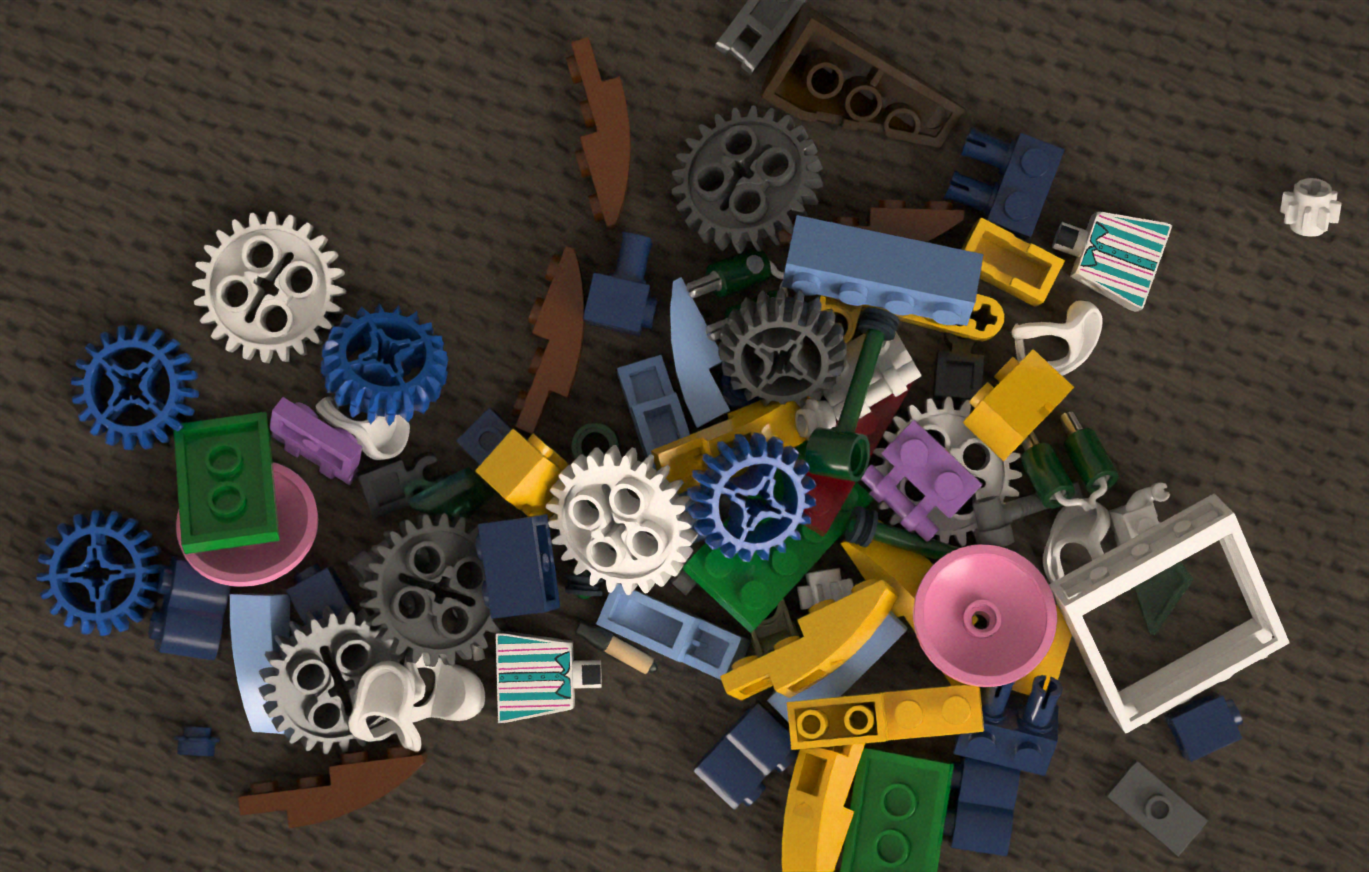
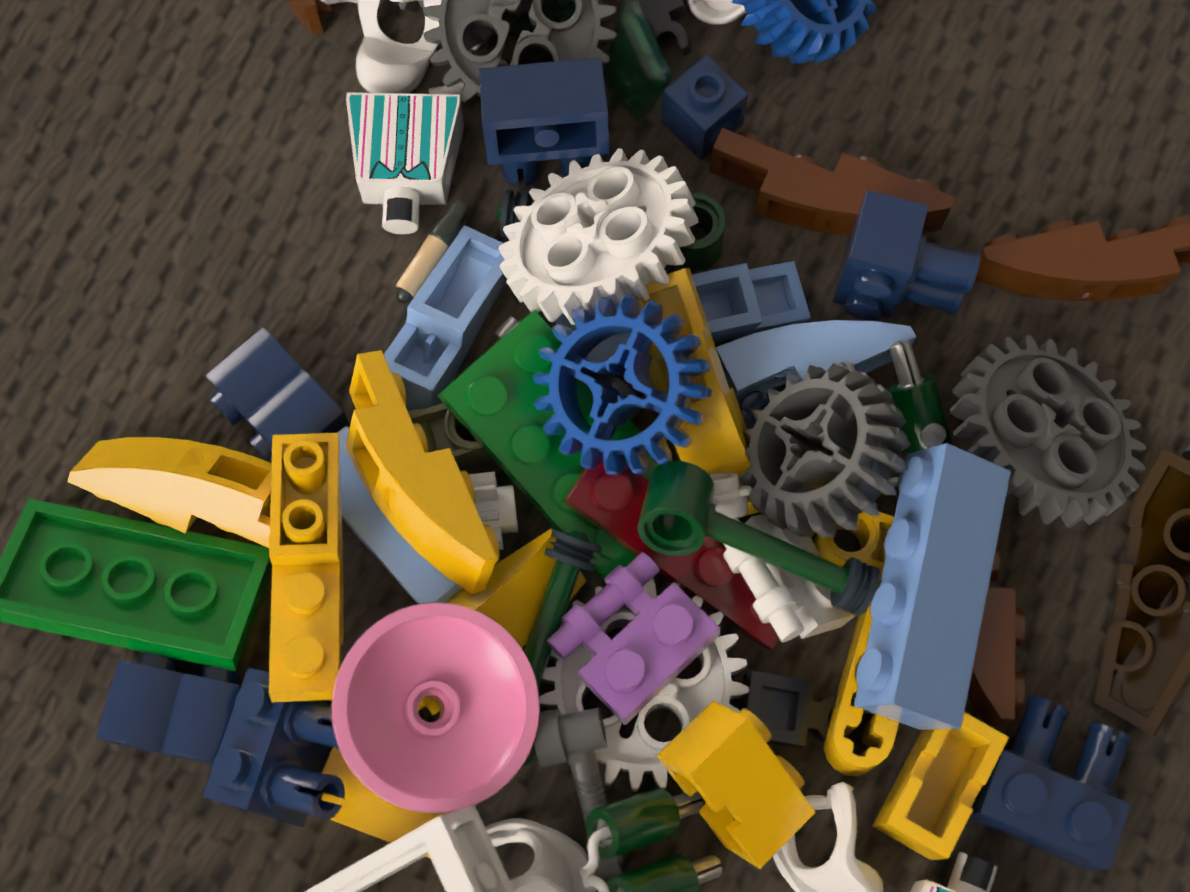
camera: 90 degrees right, 15 degrees down
(523, 472) = (666, 117): yellow brick -> none

